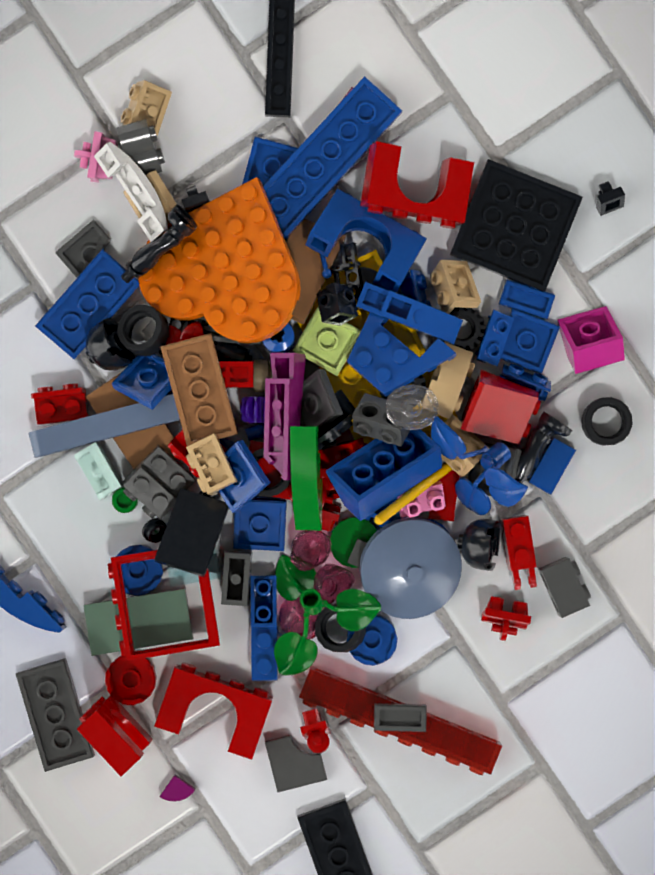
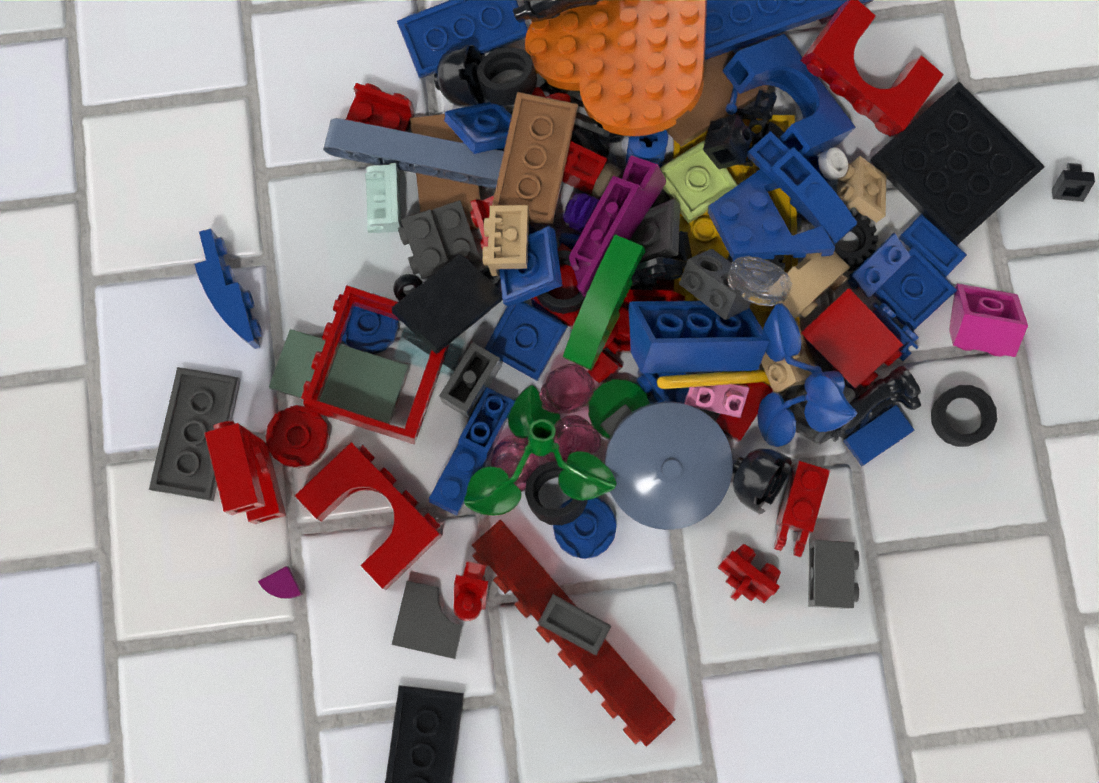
camera: 25 degrees right, 10 degrees down
(122, 502) = (392, 246): green tile -> none
(423, 277) = (833, 163): none -> white tile

